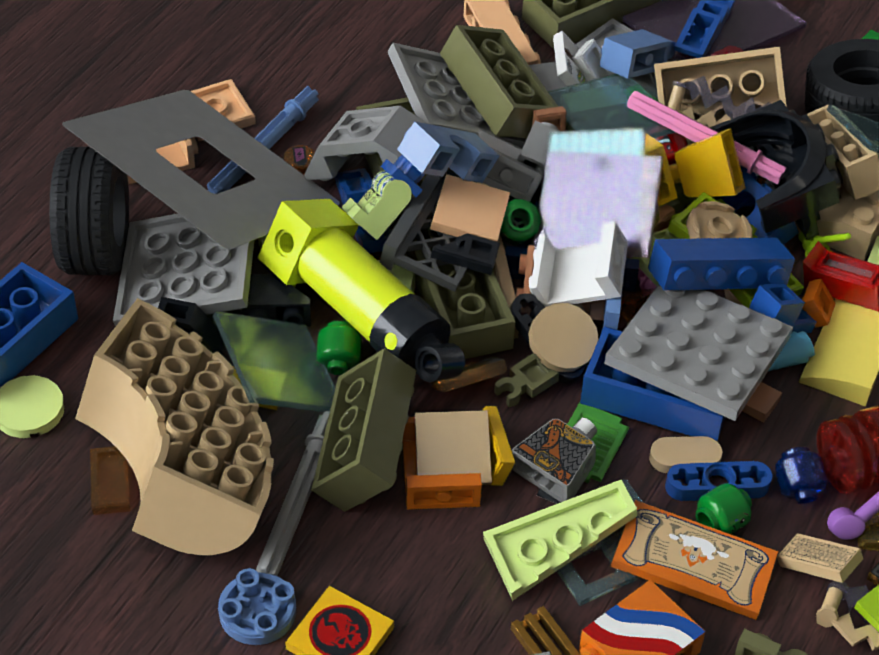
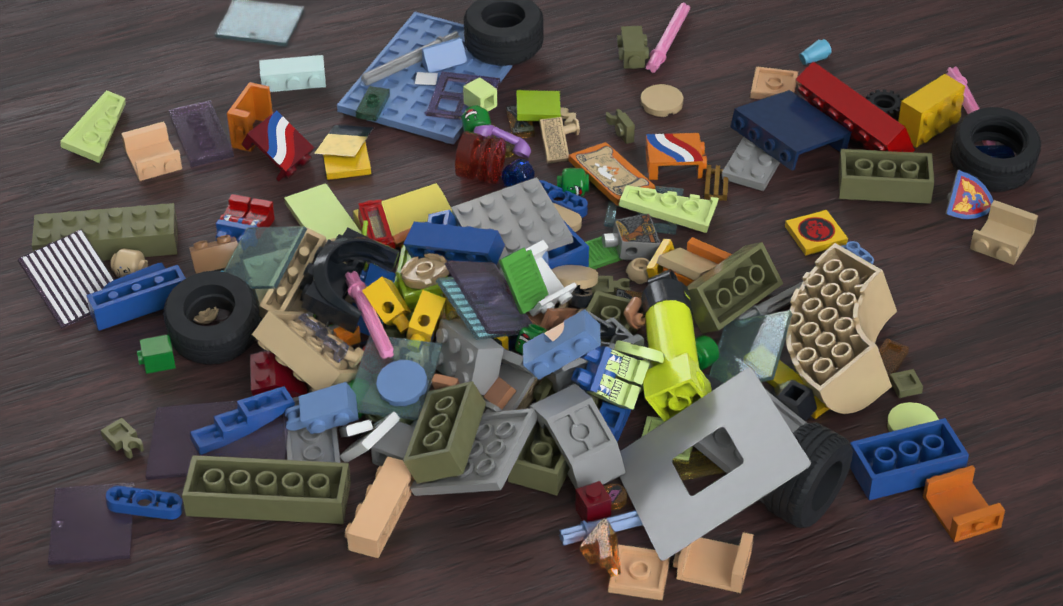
camera: 140 degrees left, 5 degrees down
(64, 448) = (906, 383): none -> olive plate
(253, 91) = (602, 547): none -> clear orange slope
(306, 126) = (593, 502): none -> dark red brick
(366, 206) = (639, 351): none -> yellowish green tile
(440, 301) = (632, 315): none -> nougat arm
(520, 424) = (637, 270): none -> tan plate
(583, 235) = (524, 279): none -> bright green window
(592, 98) = (402, 382): none -> medium blue tile

